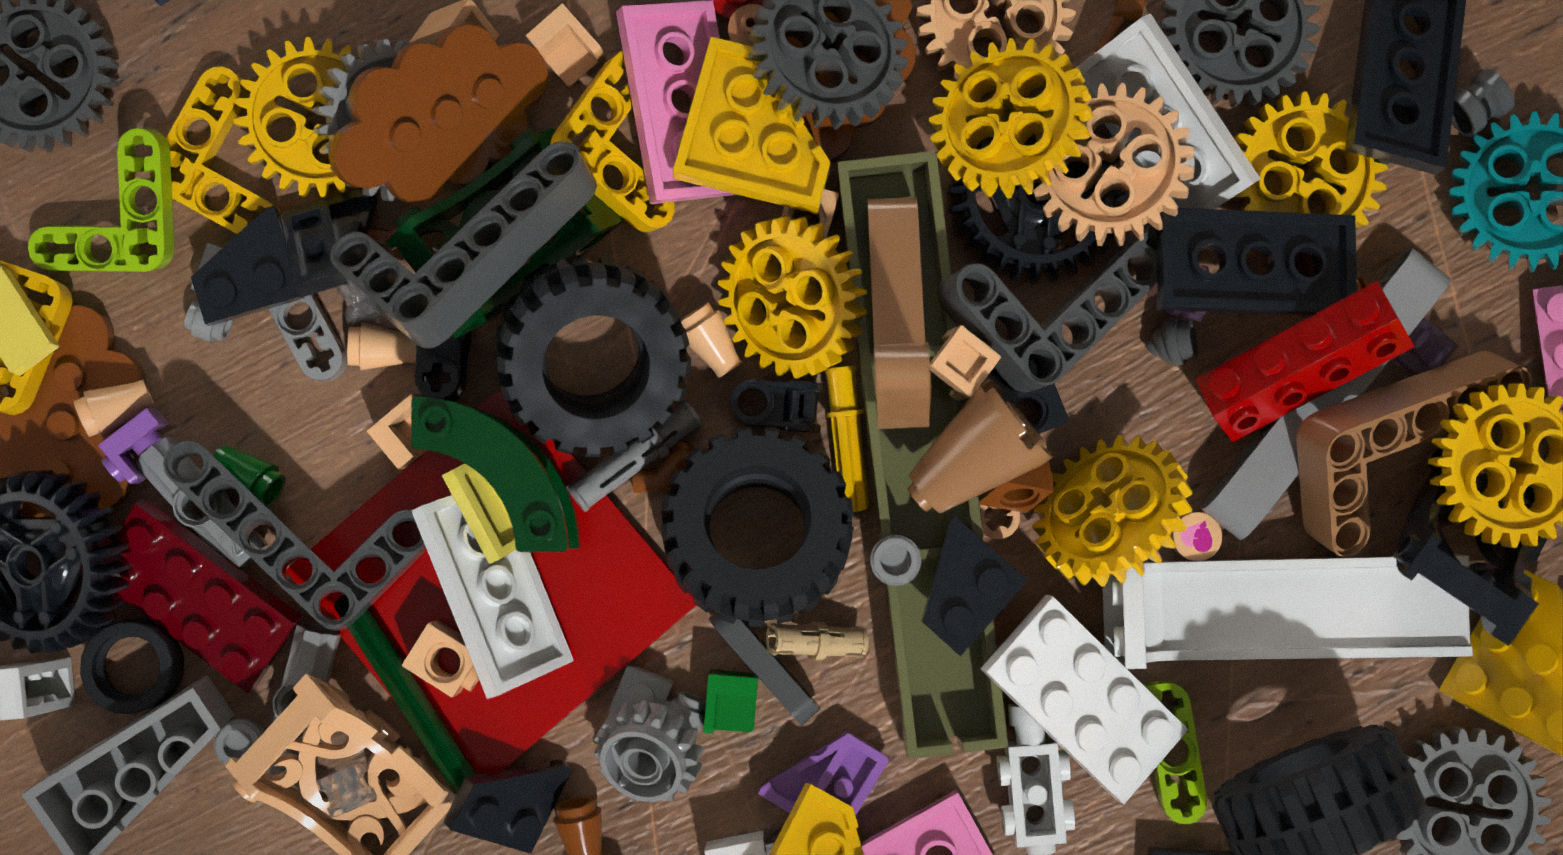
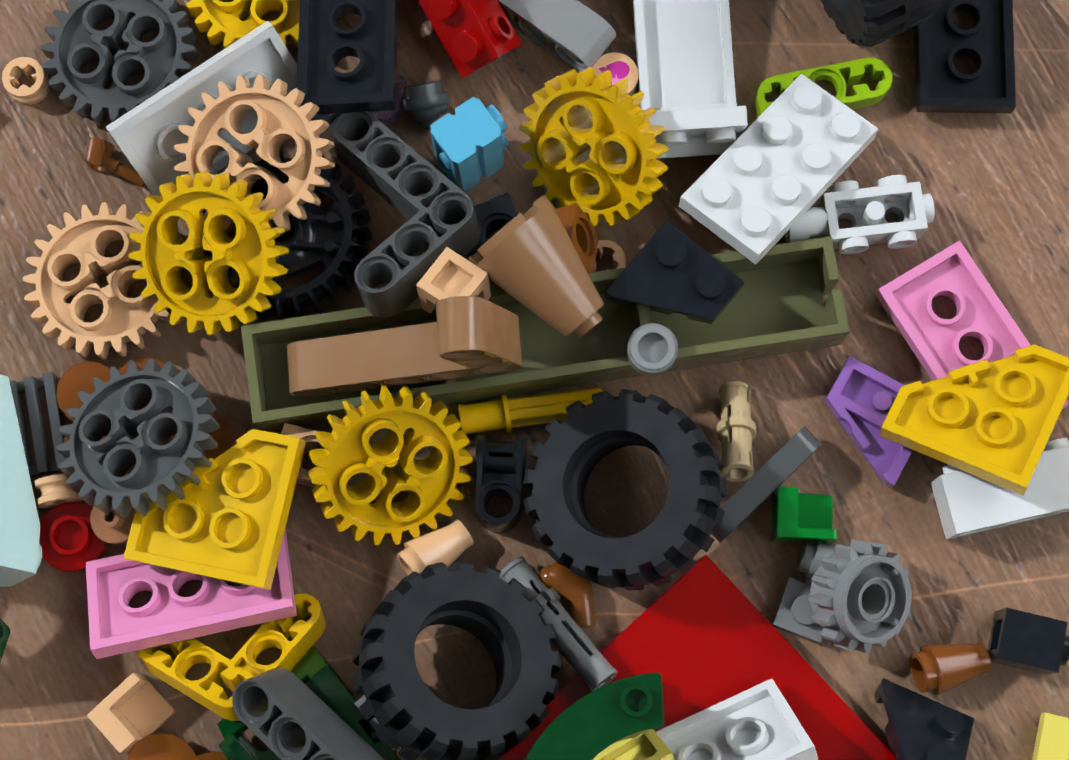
camera: 90 degrees left, 10 degrees down
(1122, 384) = (469, 143): none -> medium azure brick

